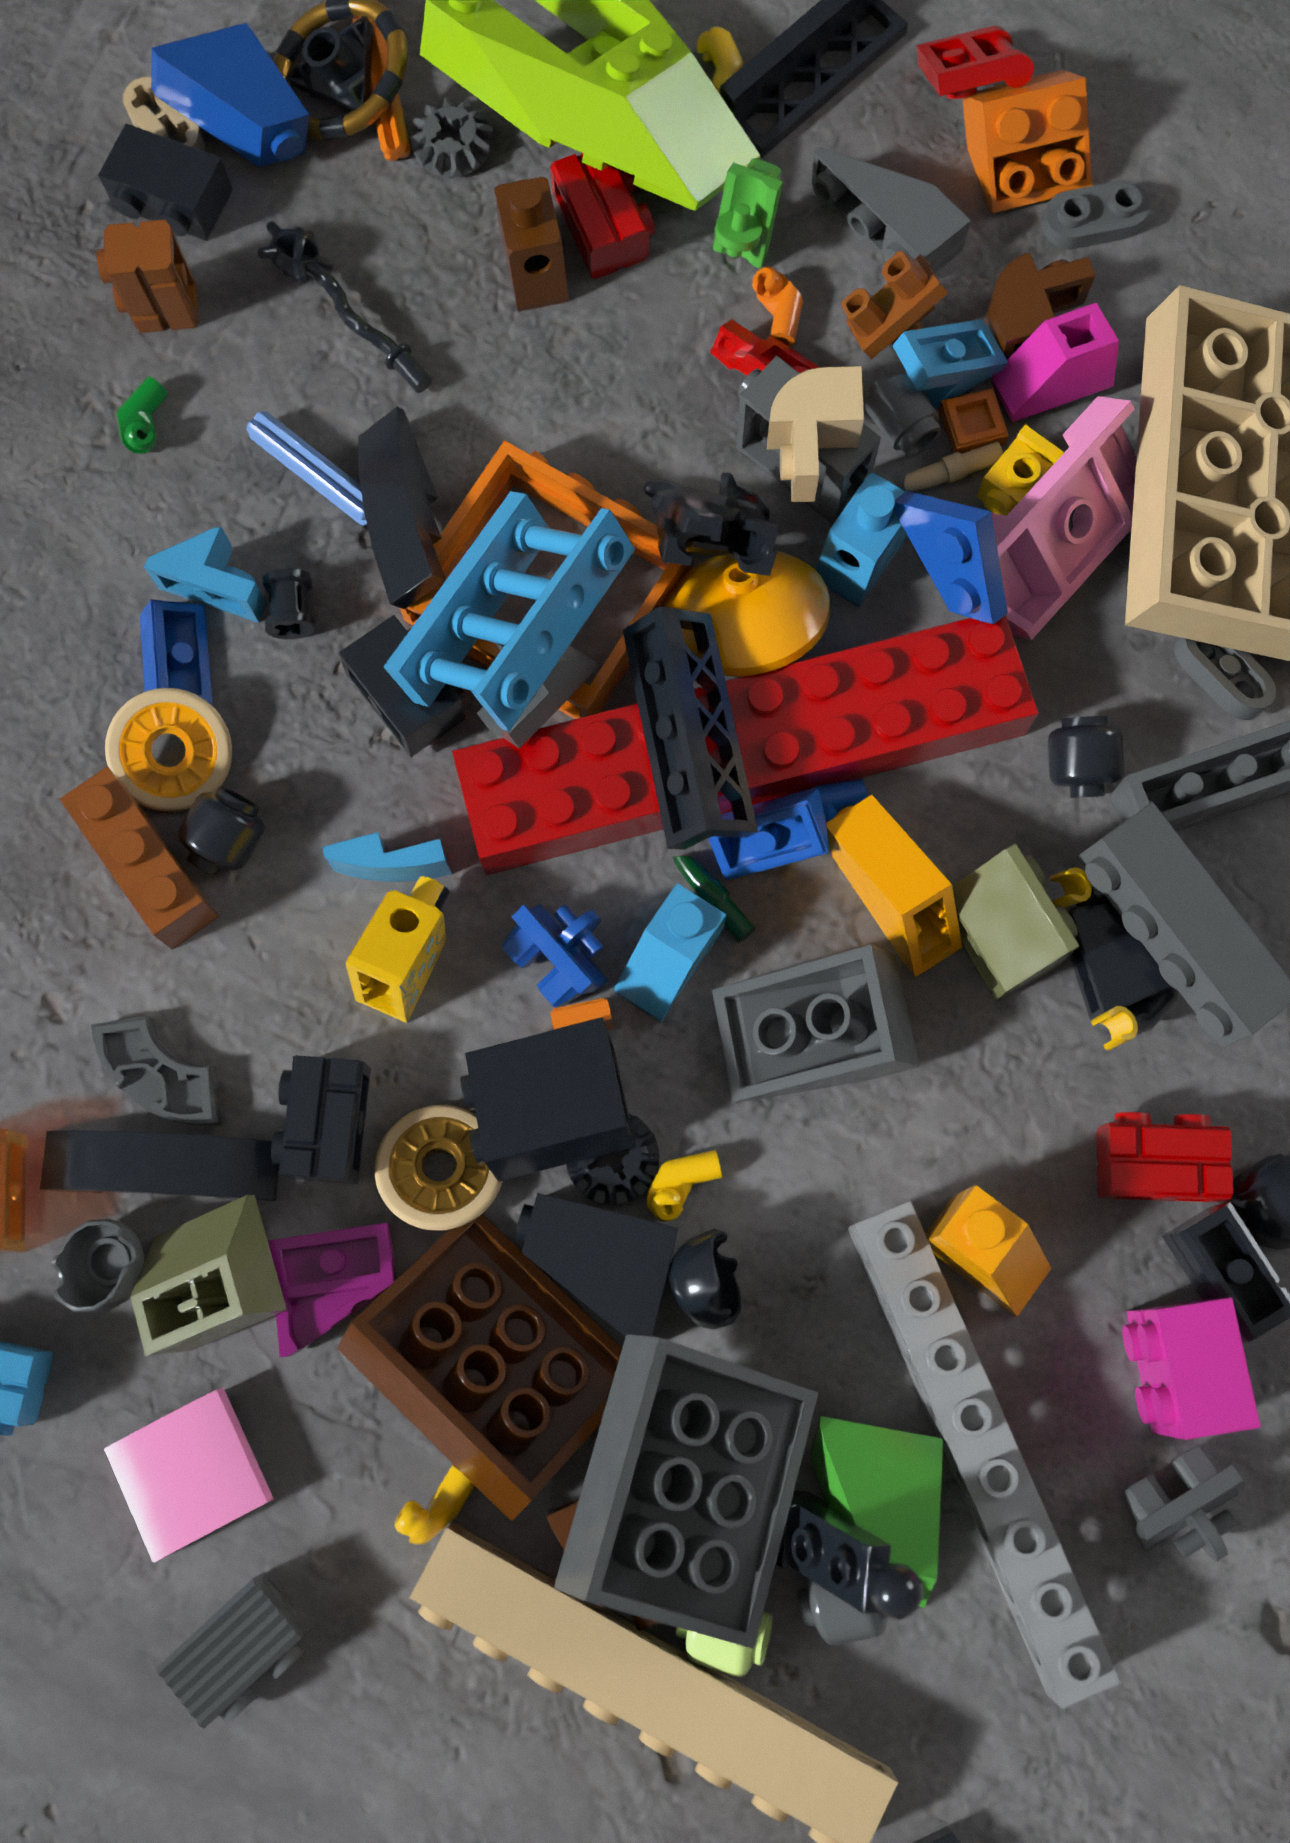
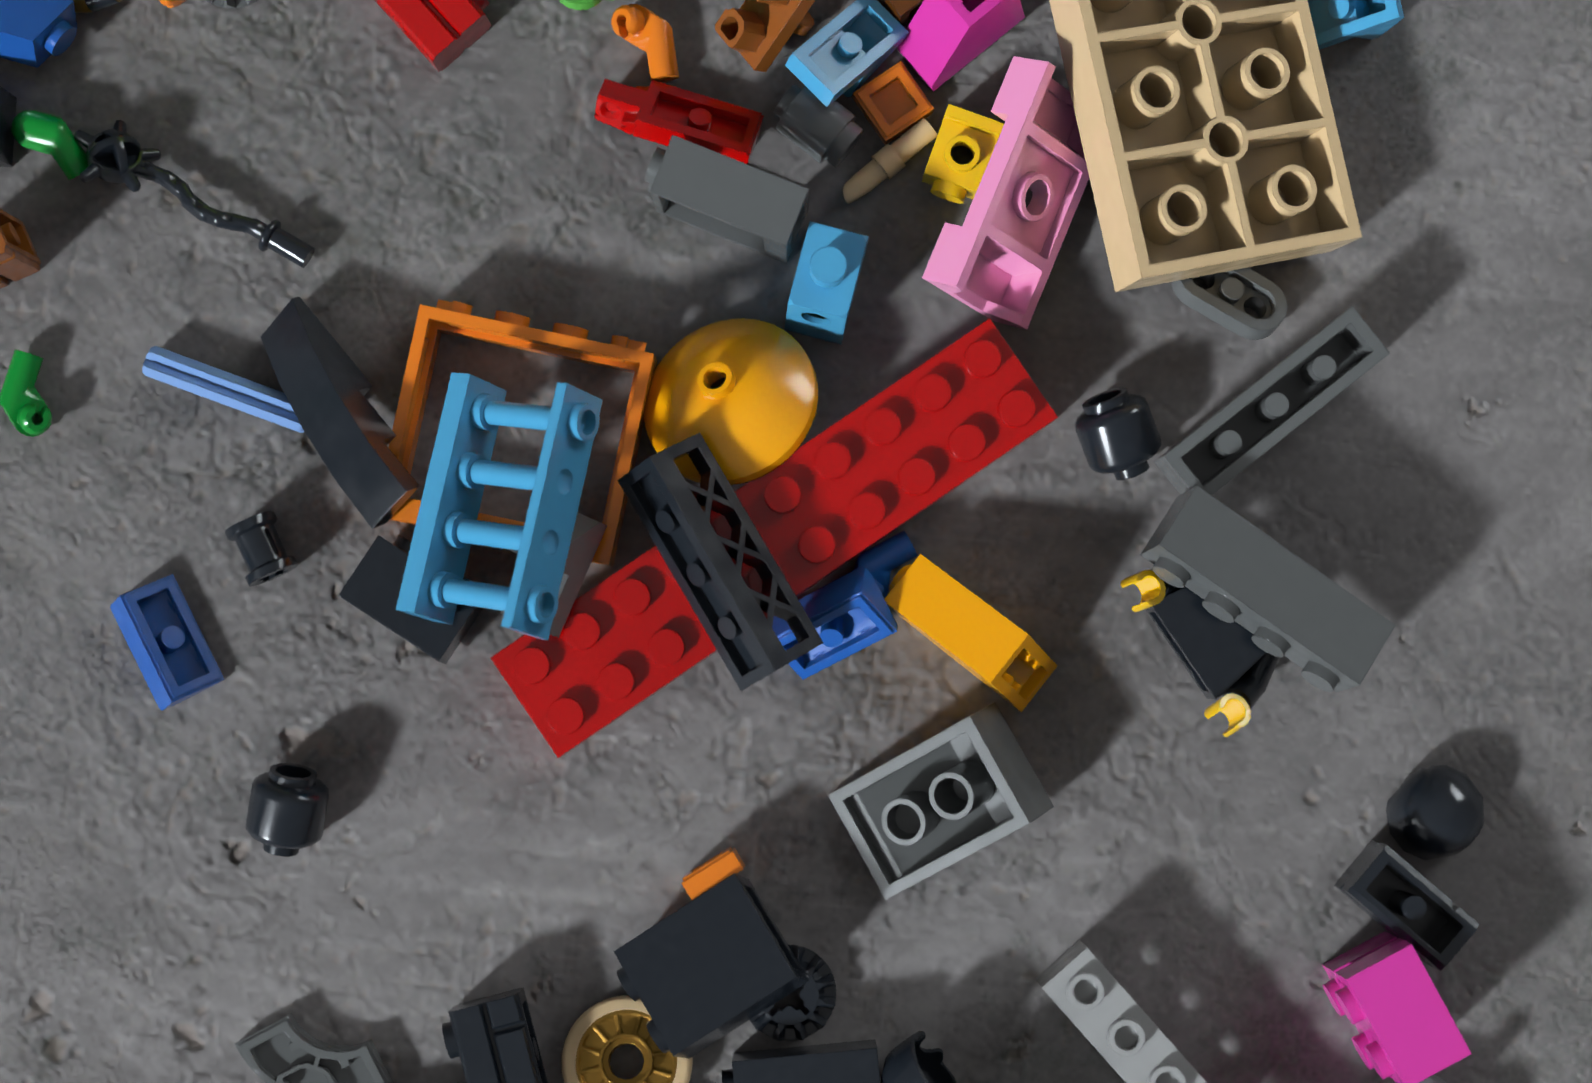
camera: 20 degrees left, 10 degrees up
(139, 858) = (216, 866): dark orange brick -> none
(170, 712) = (194, 707): wheel -> none
(200, 573) = (154, 548): dark azure slope -> none
(246, 219) = (50, 136): none -> green arm
(370, 860) = (451, 784): dark azure slope -> none
(399, 949) = (511, 892): yellow torso -> none
(531, 229) = (365, 68): reddish brown torso -> none
(540, 933) = (668, 806): blue hips -> none
(670, 952) = (775, 778): dark azure slope -> none
(675, 1181) = (857, 993): yellow arm -> none
(713, 524) = (665, 330): black animal -> none
(716, 894) = (802, 703): dark green piece -> none
(812, 413) = (733, 194): tan brick -> none
(957, 552) = (924, 285): blue wing -> none
(989, 1248) = (1172, 964): light orange slope -> none
(1011, 923) = (1095, 639): slope -> none
(1164, 1160) = (1314, 815): red brick -> none

